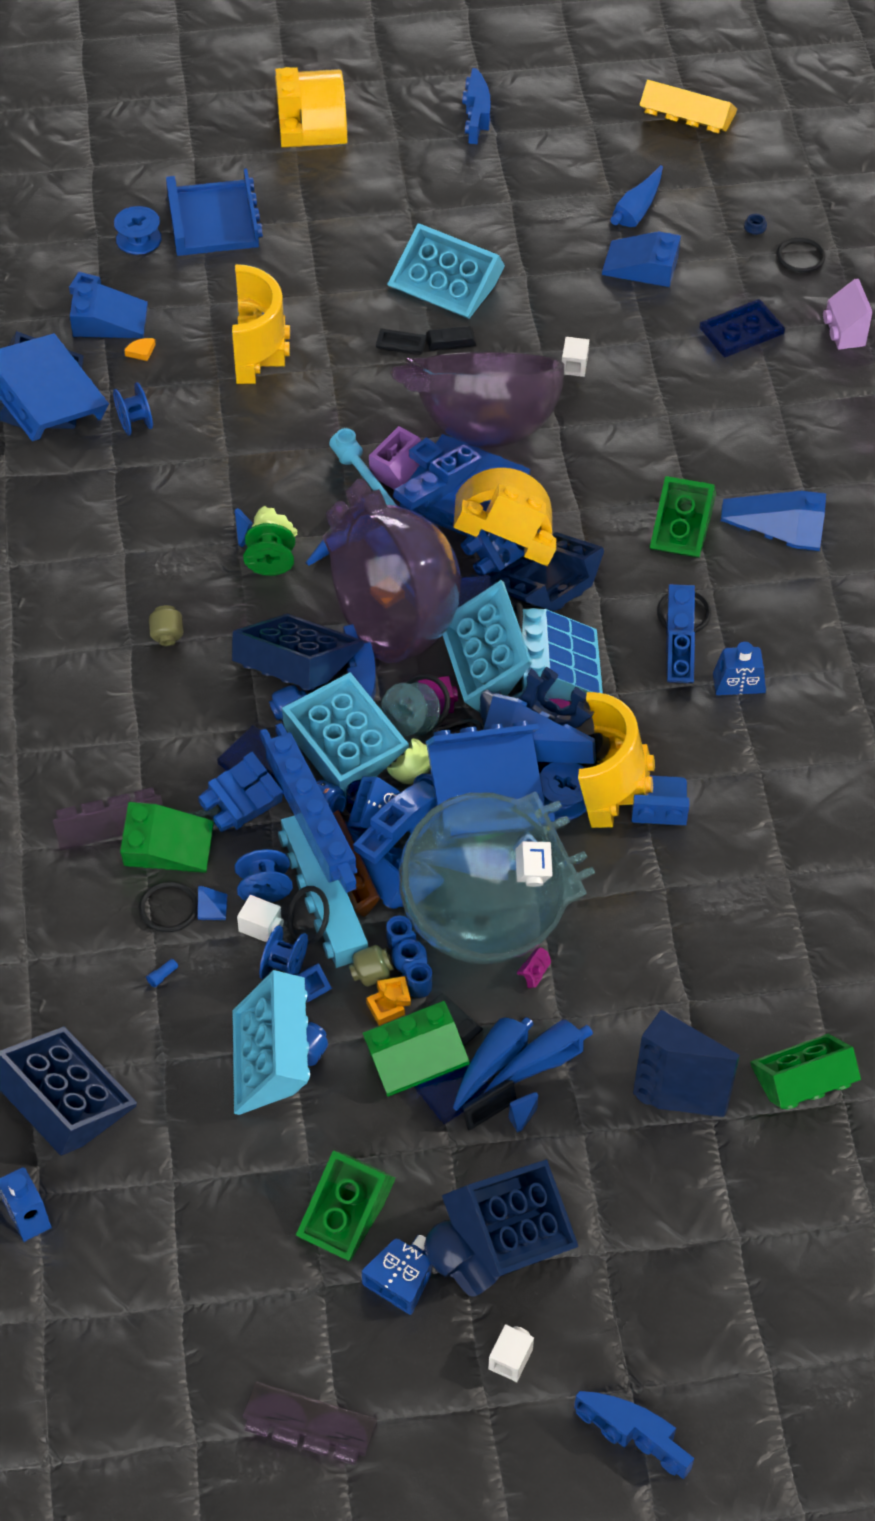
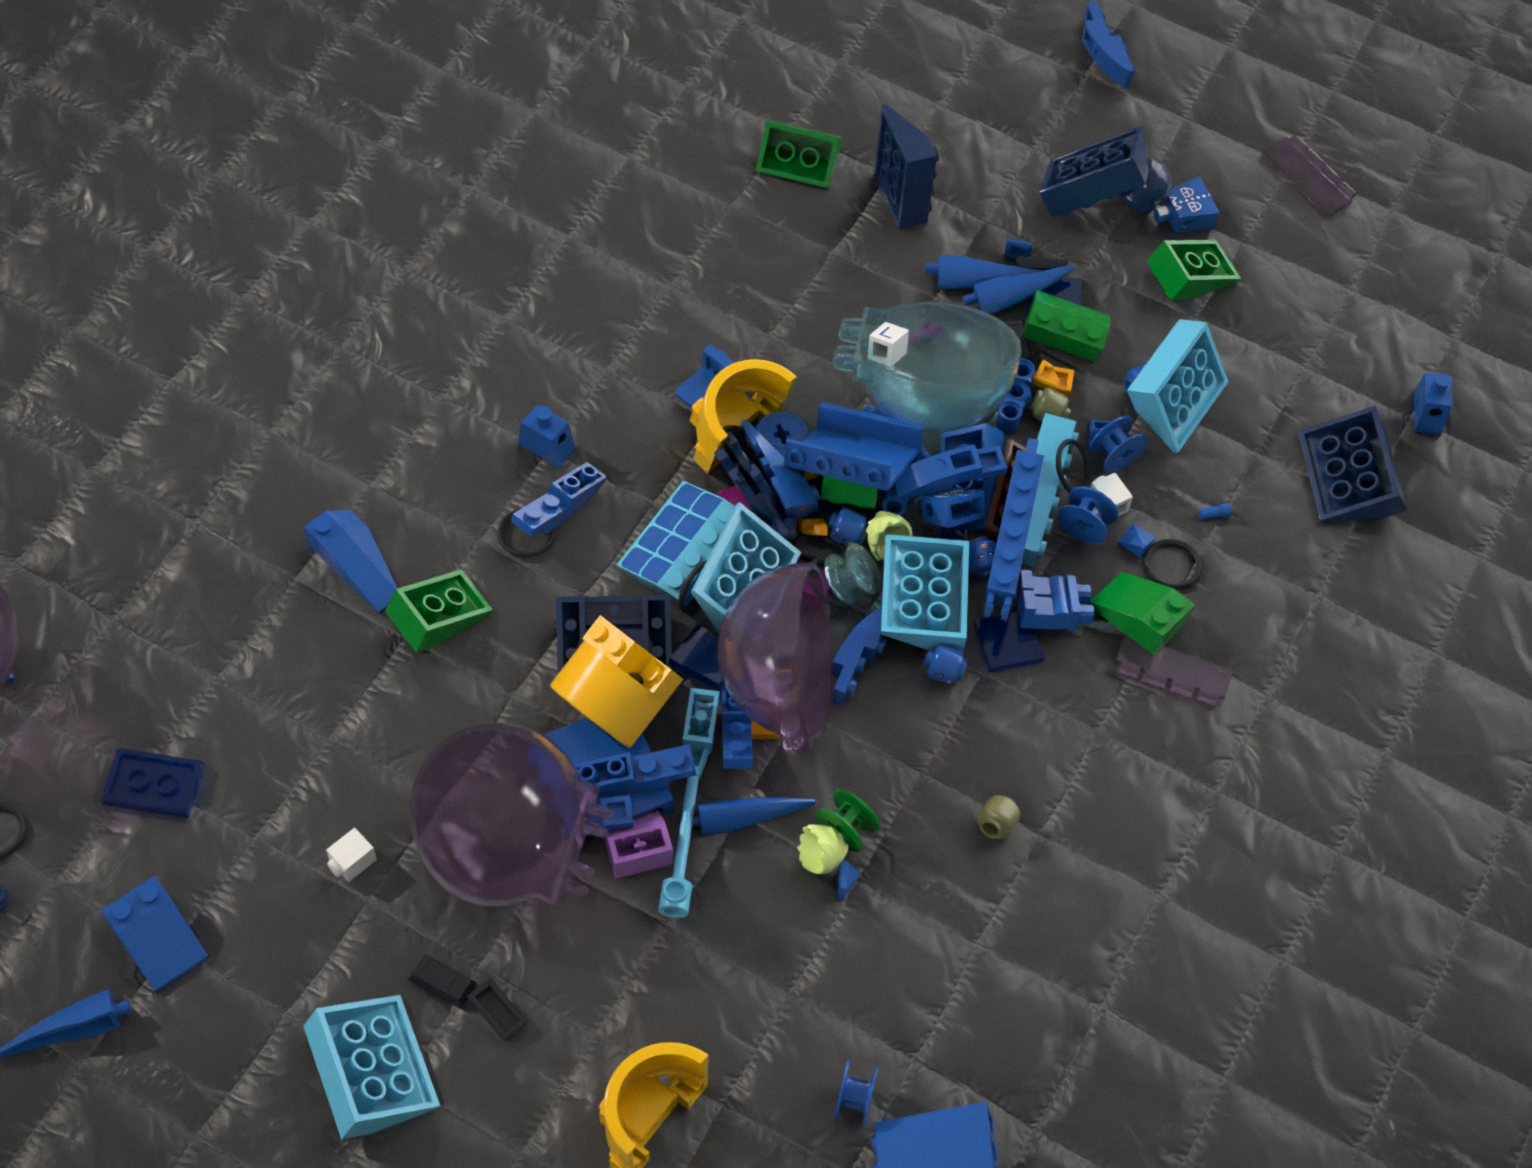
camera: 145 degrees left, 5 degrees up
(294, 650) = (903, 697): dark blue slope -> none
(511, 1352) = (1155, 122): white brick -> none
(848, 316) = (54, 701): lavender slope -> none

